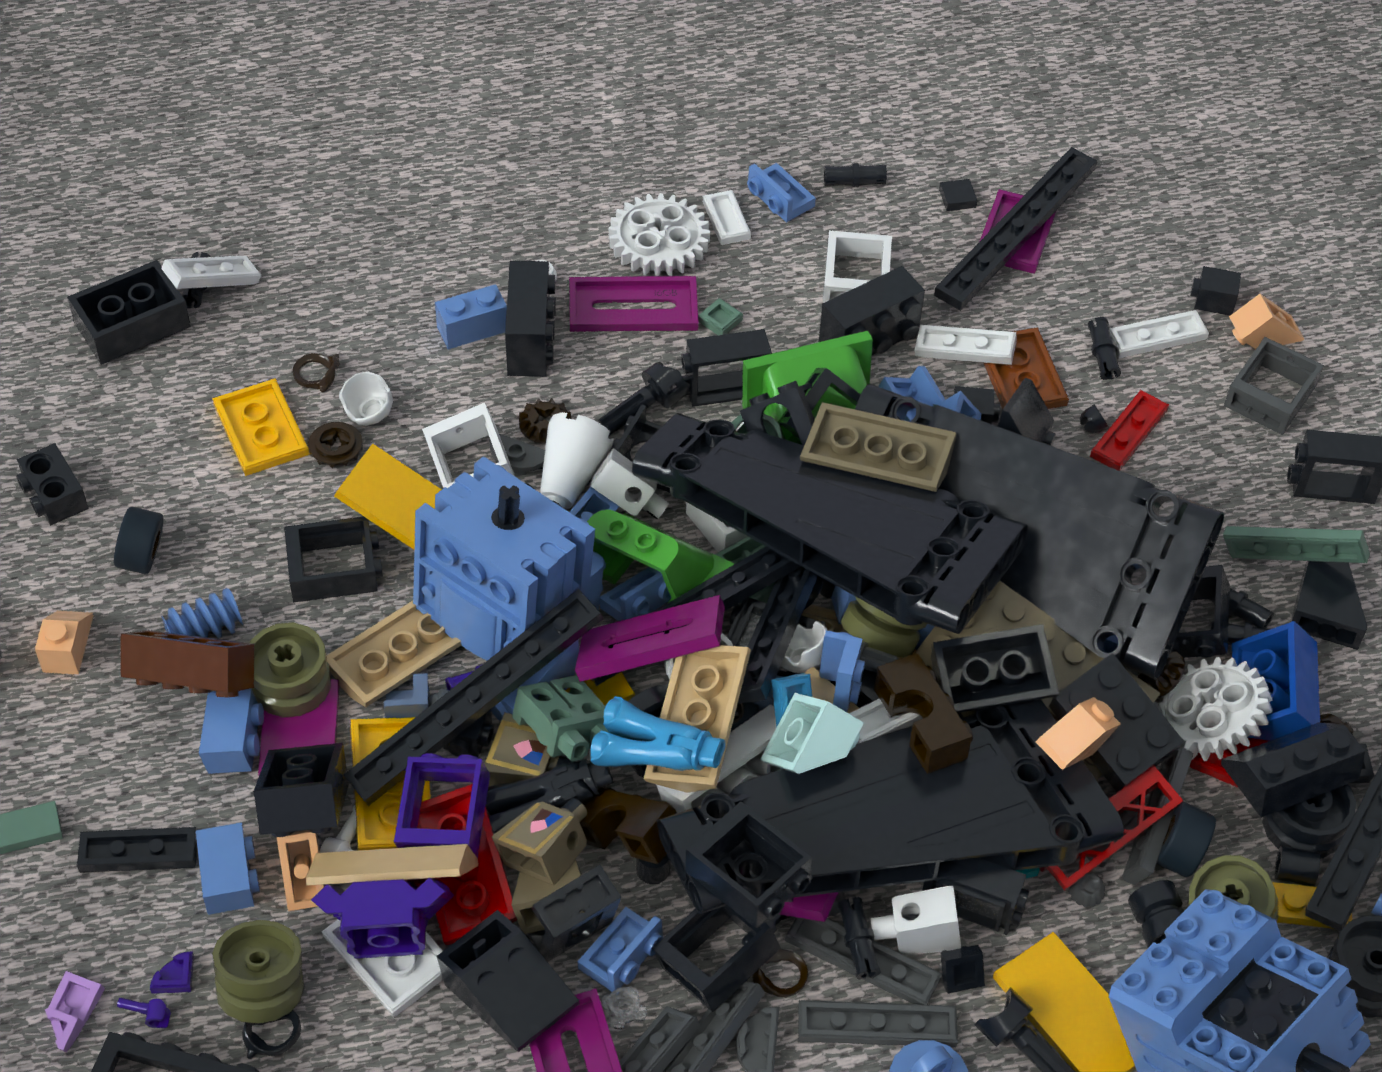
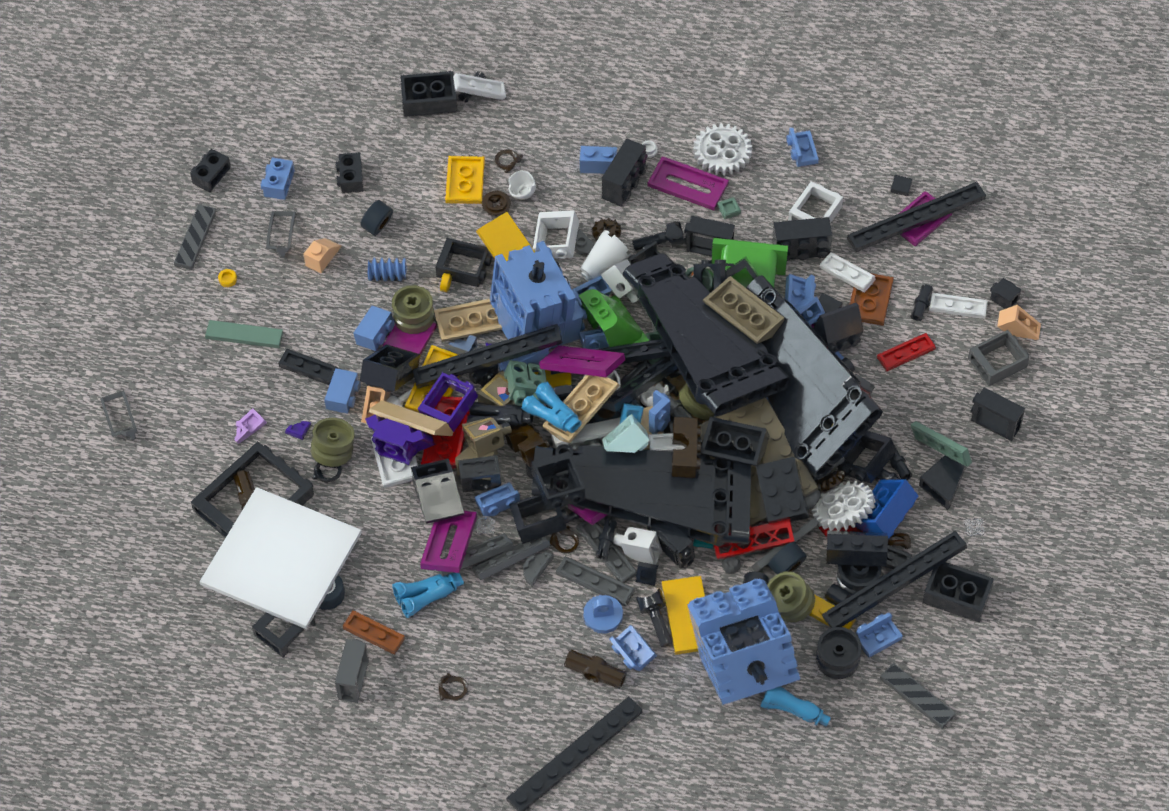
camera: 30 degrees right, 5 degrees up
(156, 1012) = (282, 442): dark purple hand -> none
(187, 661) = (367, 287): reddish brown brick -> none
(319, 604) = (445, 282): none -> yellow tile
(726, 217) = (766, 152): white tile -> none
(855, 175) = (850, 153): black pin -> none
(1079, 733) = (751, 487): light nougat slope -> none
(1093, 420) = (890, 338): black hinge -> none

